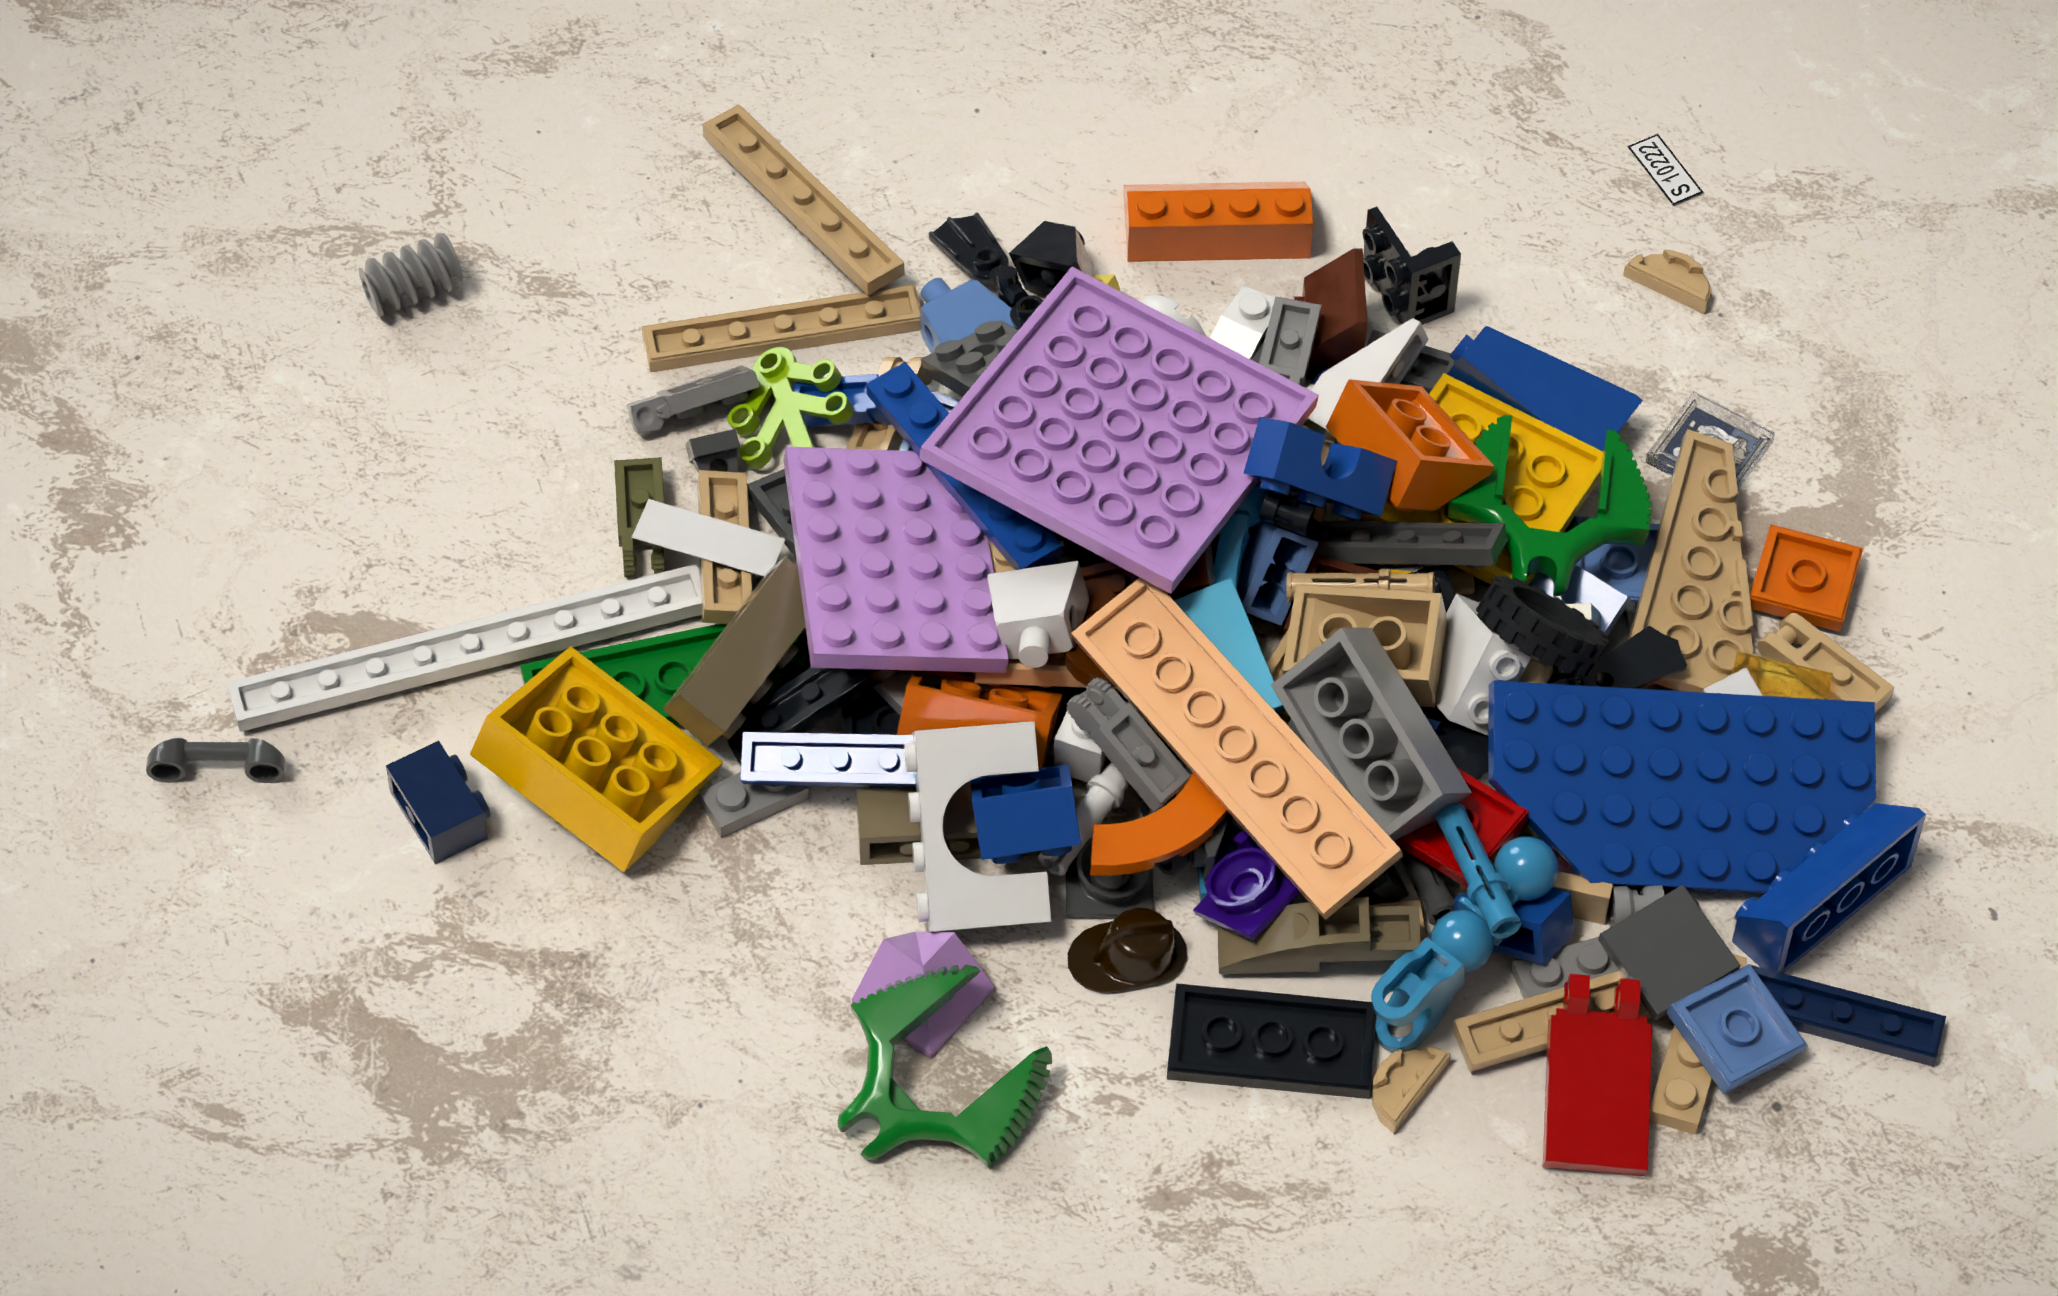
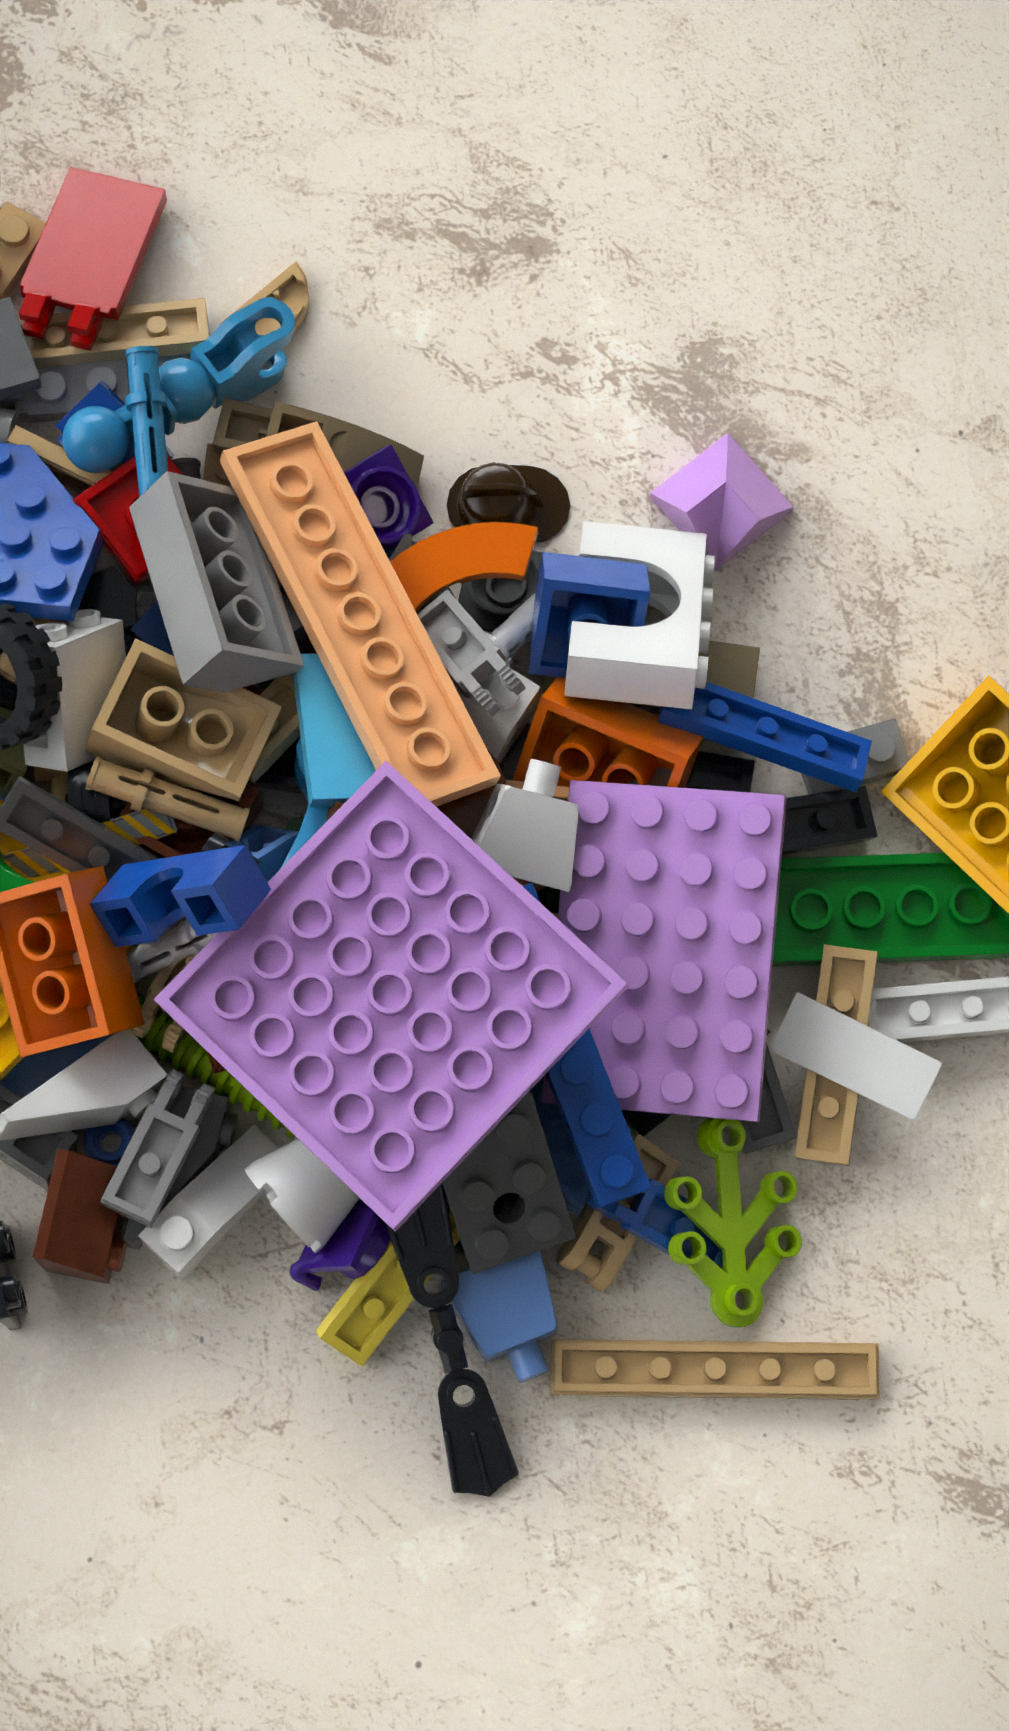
camera: 170 degrees left, 20 degrees up
(636, 483) = (920, 1147): olive hinge -> none
(688, 398) = (833, 1279): light grey hinge -> none
(712, 447) = (826, 1199): dark grey tile -> none
(742, 658) = (848, 877): dark tan brick -> none
(803, 199) = (662, 1544): tan plate -> none
(982, 1128) = (752, 446): green piece -> none
(1048, 256) = (380, 1369): black slope -> none
(1218, 221) = (172, 1422): orange slope -> none
(1272, 1041) = (389, 379): black tile -> none

